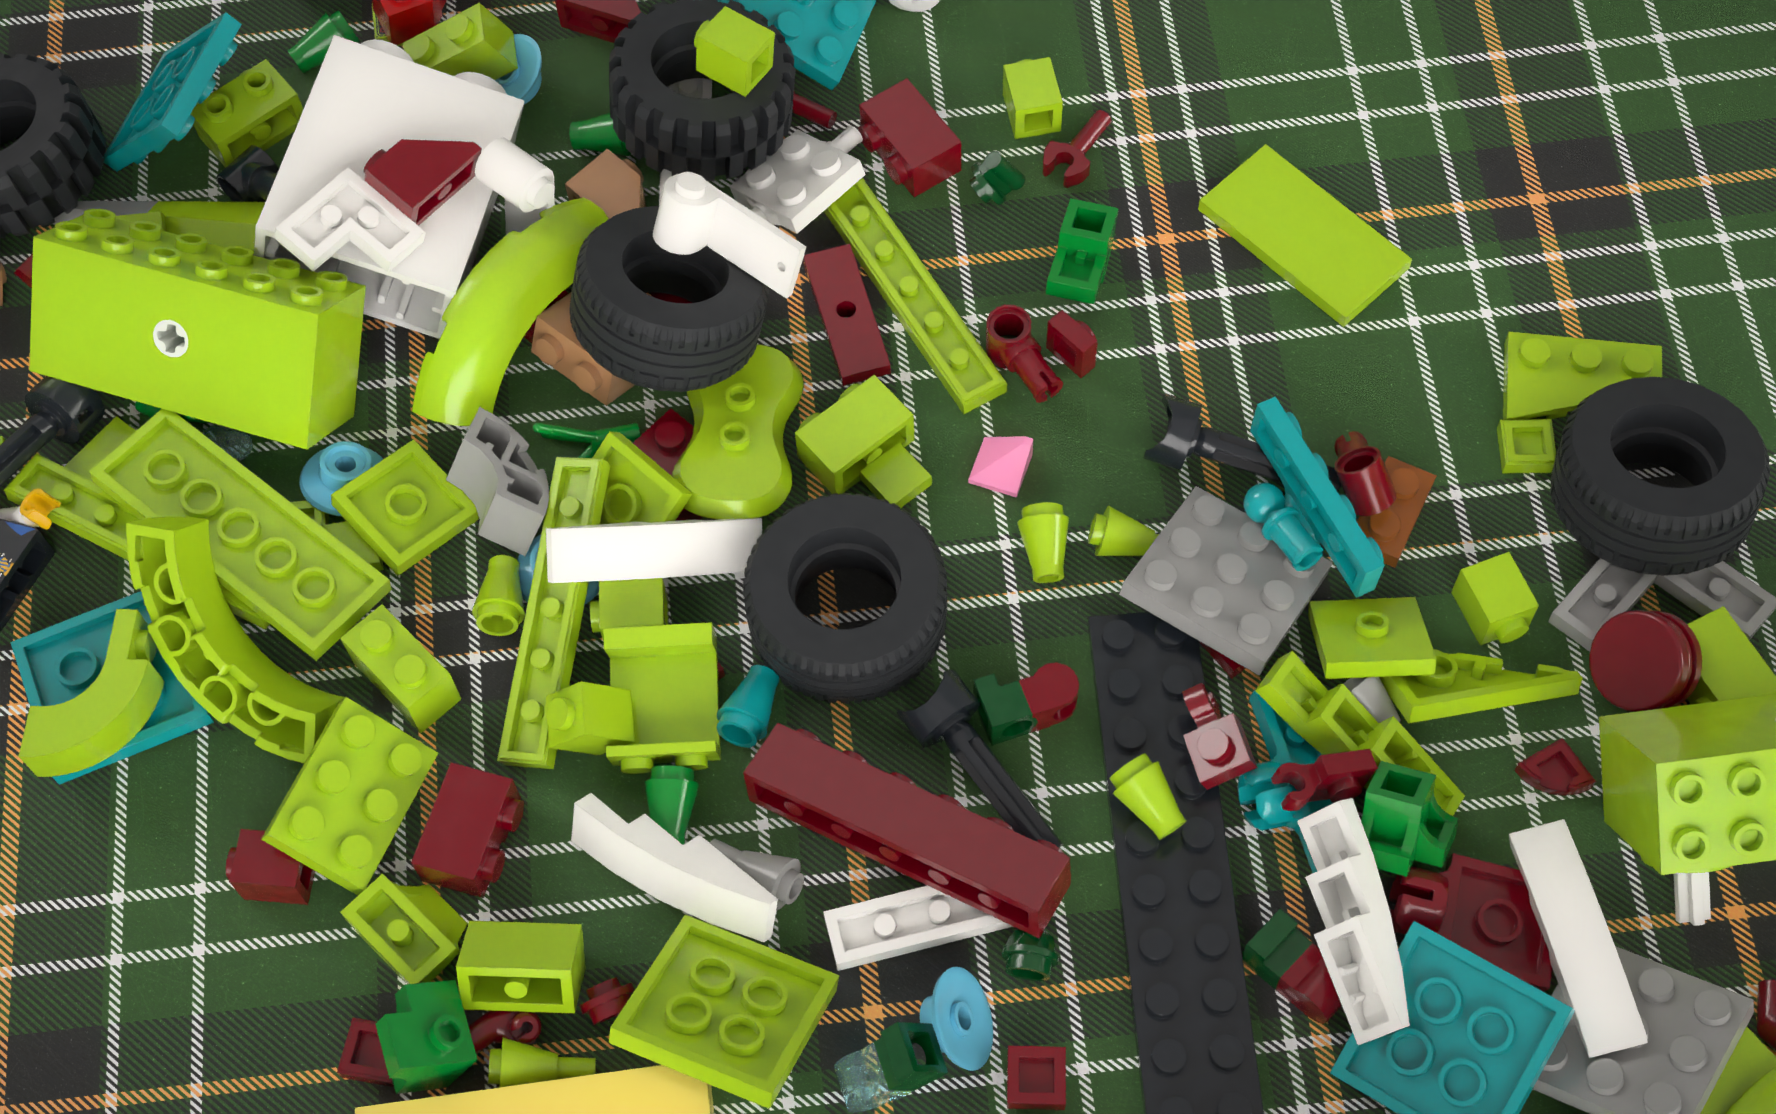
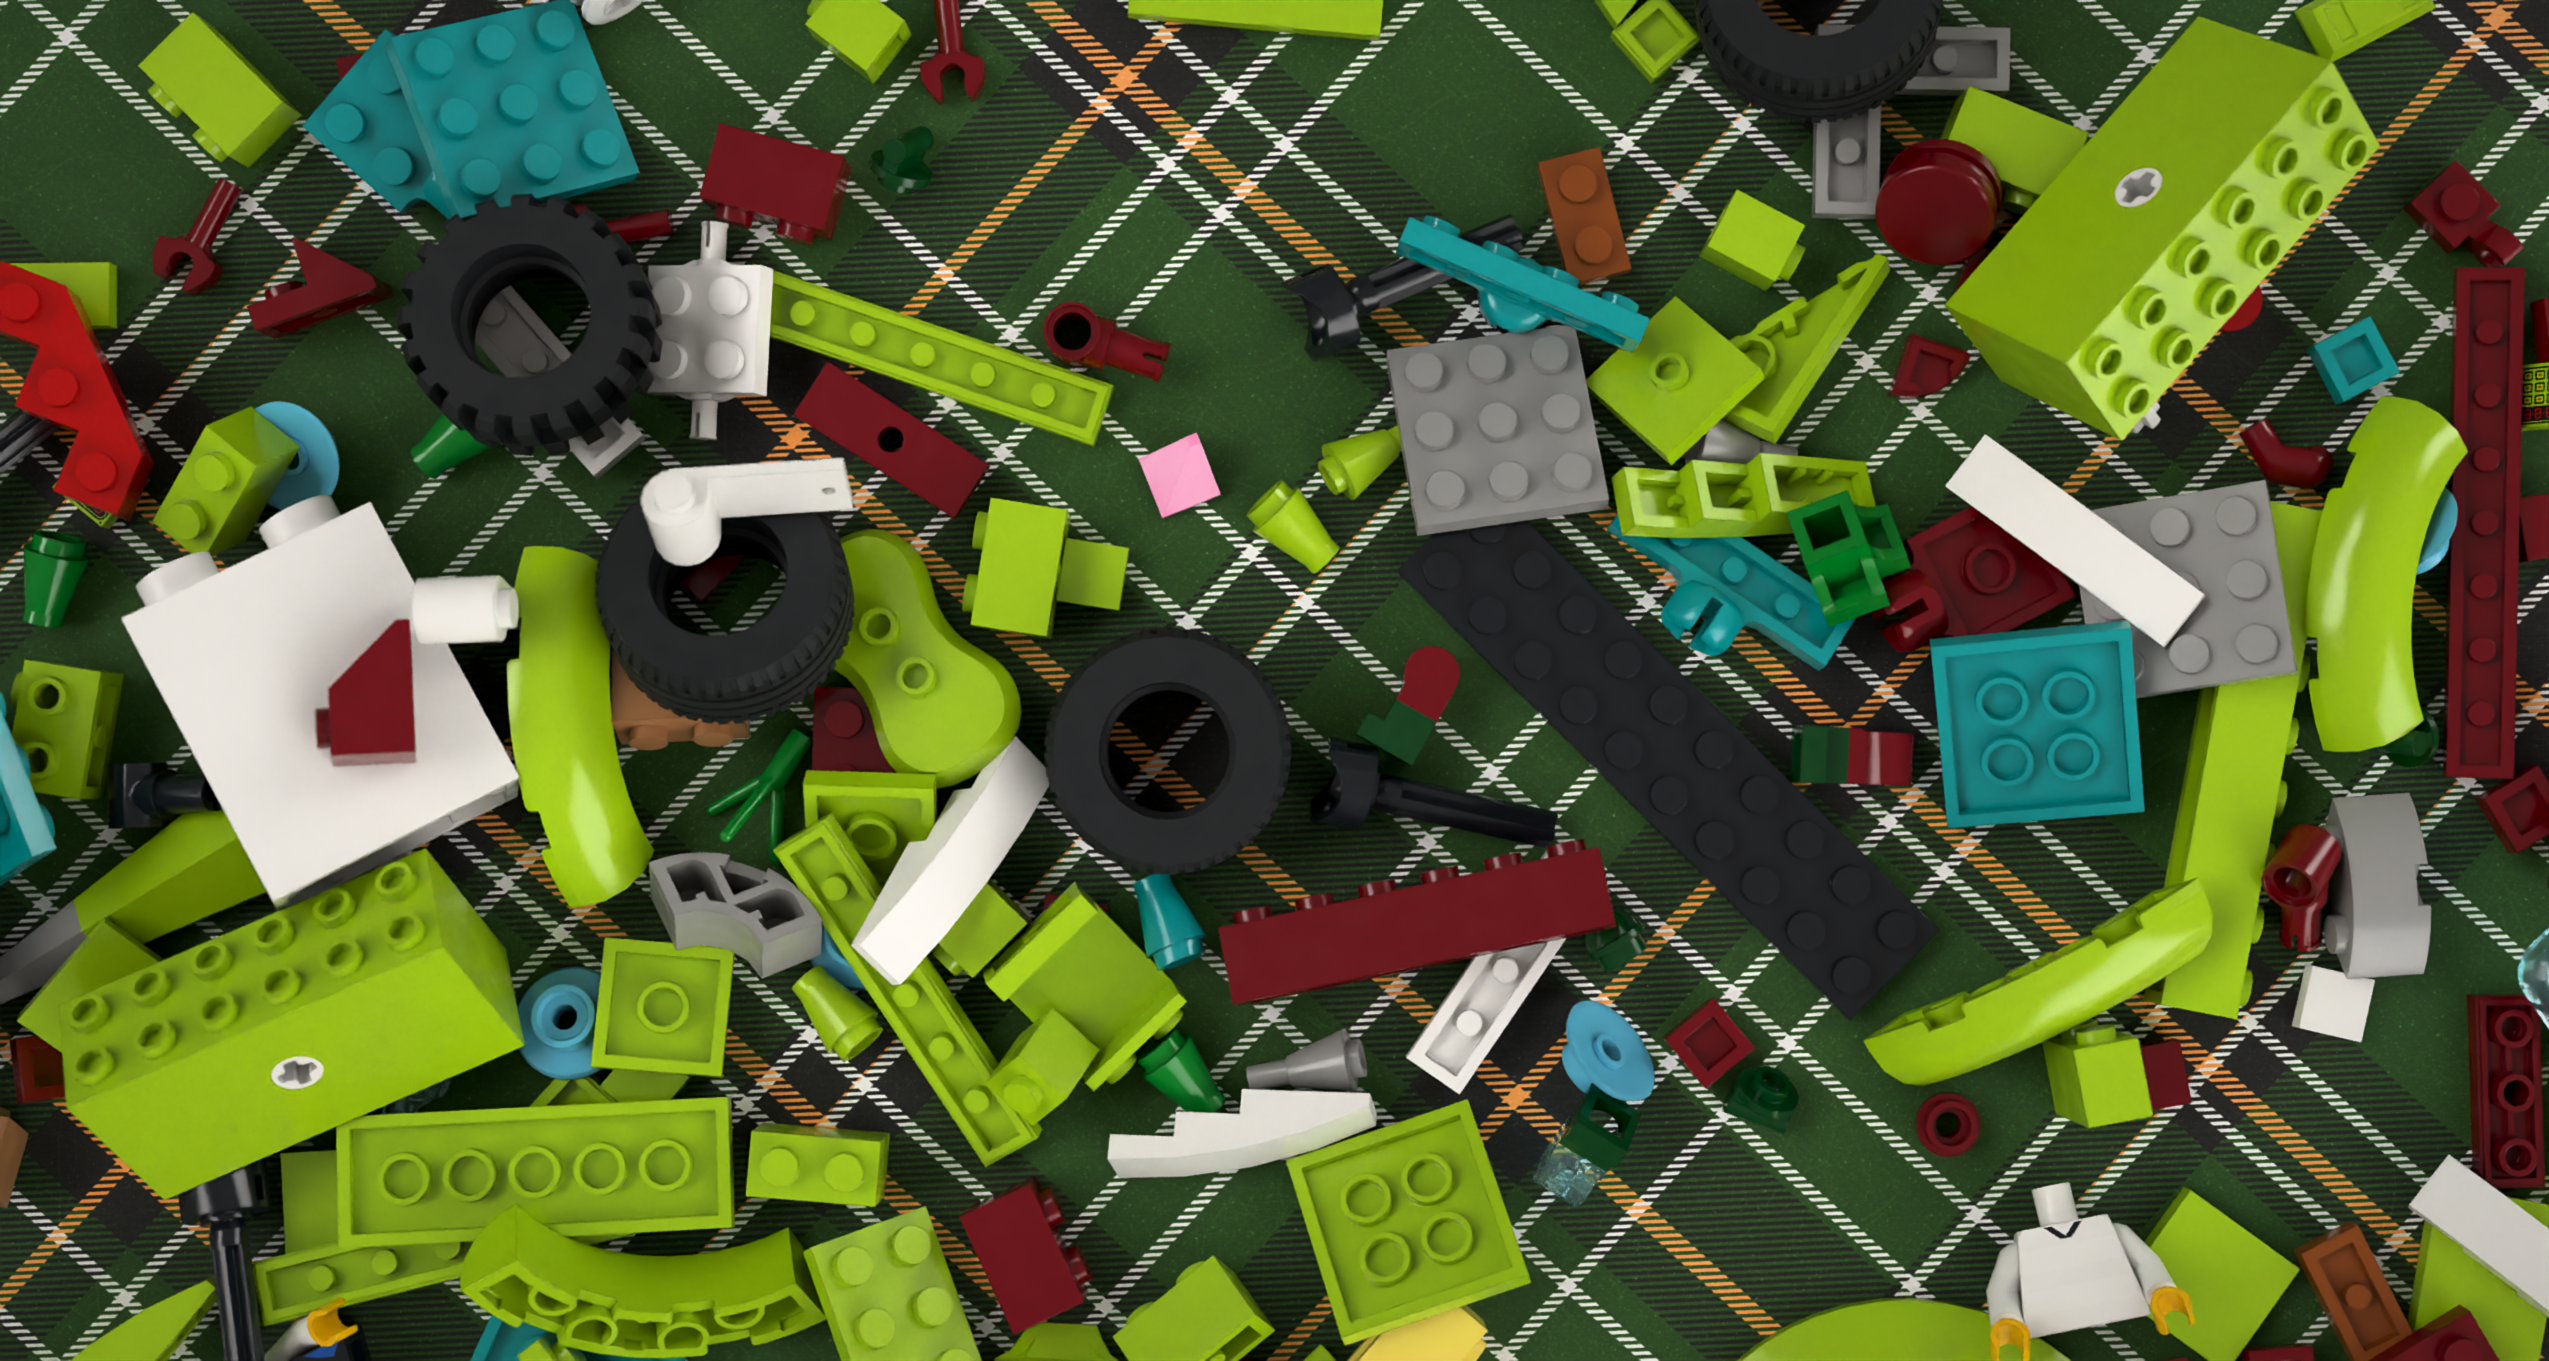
camera: 45 degrees left, 25 degrees up
(349, 212) = (347, 805): white plate -> none
(606, 1000) = (1291, 1292): dark red plate -> none
(609, 184) = (541, 508): medium nougat slope -> none
(734, 50) = (553, 284): lime brick -> none
(1072, 343) = (1142, 288): dark red plate -> none
(1082, 251) = (1068, 180): green brick -> none
(1147, 794) = (1603, 715): lime cone -> none
(1219, 744) = (1628, 615): plate -> none
(1266, 505) = (1478, 328): teal pin -> none
(1330, 777) = (1760, 562): dark red plate -> none
(1359, 929) = (1893, 697): white slope -> none
(1363, 475) = (1536, 213): dark red pin -> none

